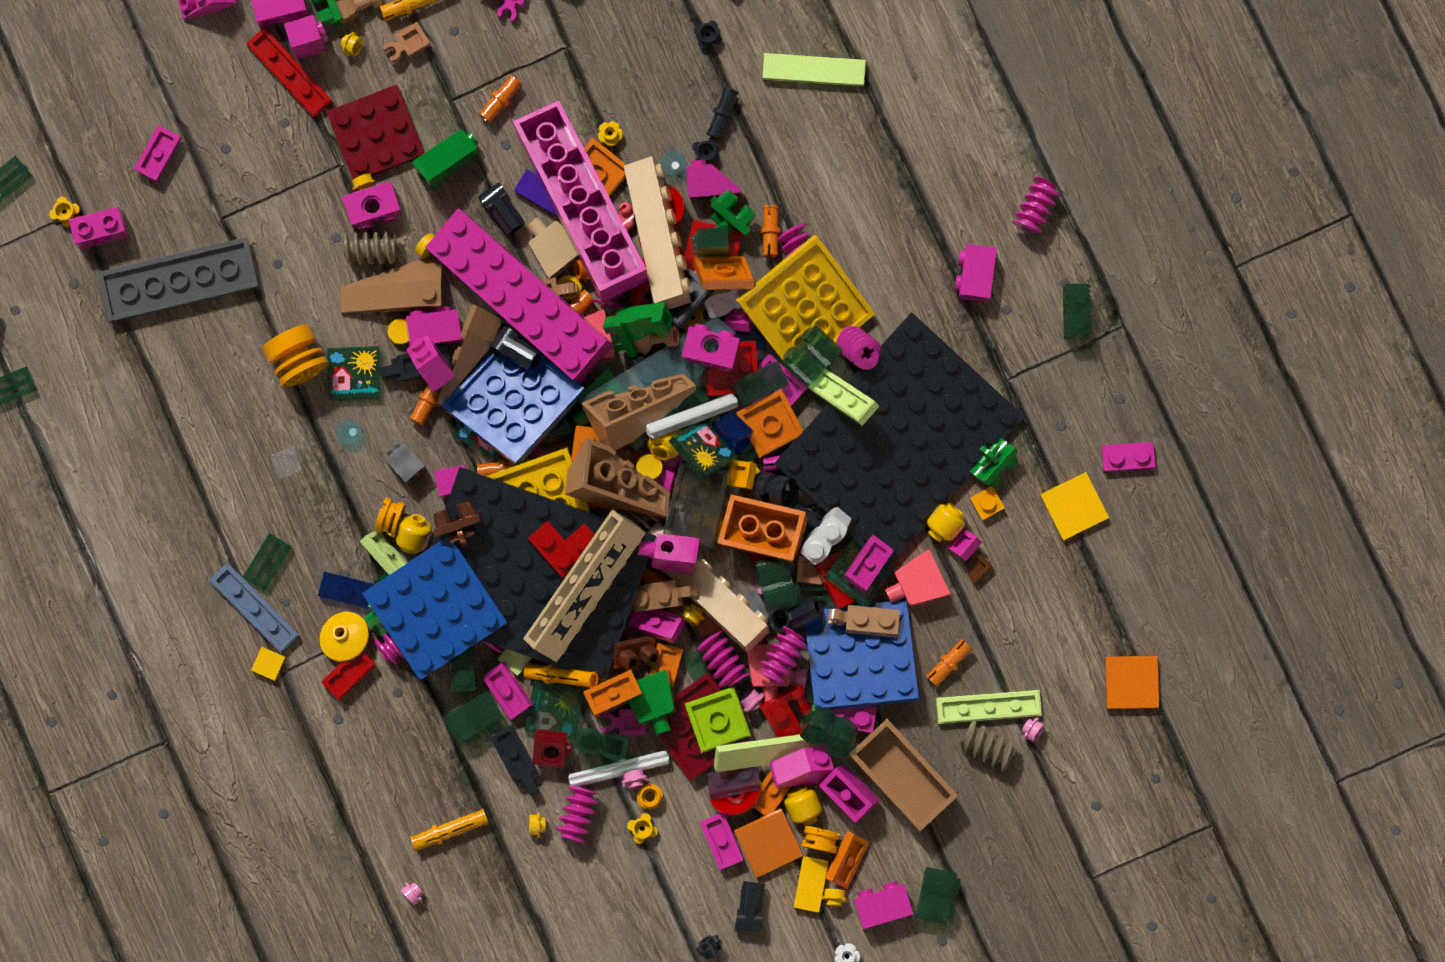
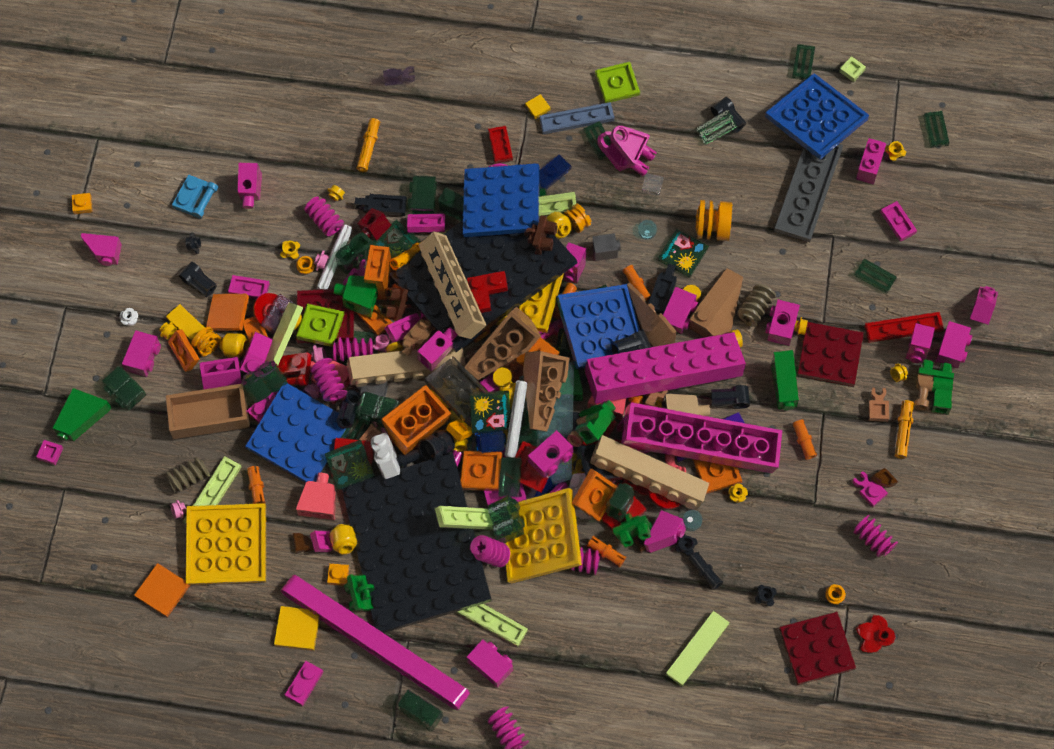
camera: 125 degrees right, 15 degrees down
(78, 323) = (817, 116): none -> blue plate
(137, 436) = (724, 105): none -> black piece
(175, 590) = (617, 82): none -> lime tile
(184, 444) = (713, 121): none -> clear green tile
(234, 140) = (874, 268): none -> clear green tile
(265, 515) = (627, 148): none -> dark pink piece
(338, 860) = (396, 76): none -> clear purple plate
(351, 643) = (517, 155): yellow dish -> none
(412, 893) = (346, 104): bright pink plate -> none
(430, 362) = (655, 286): dark pink brick -> none
(586, 936) = (249, 183): none -> dark pink torso
(686, 644) = (382, 342): none -> bright pink plate
(867, 620) = (315, 448): medium nougat plate -> none
(868, 563) = (349, 469): dark pink plate -> none
(927, 293) = (495, 623): none -> yellowish green tile
(1000, 923) = (79, 414): none -> green slope
(1036, 411) = (376, 642): none -> dark pink beam
(1037, 646) = (226, 544): none -> yellow plate
(1065, 924) = (49, 452): none -> dark pink plate

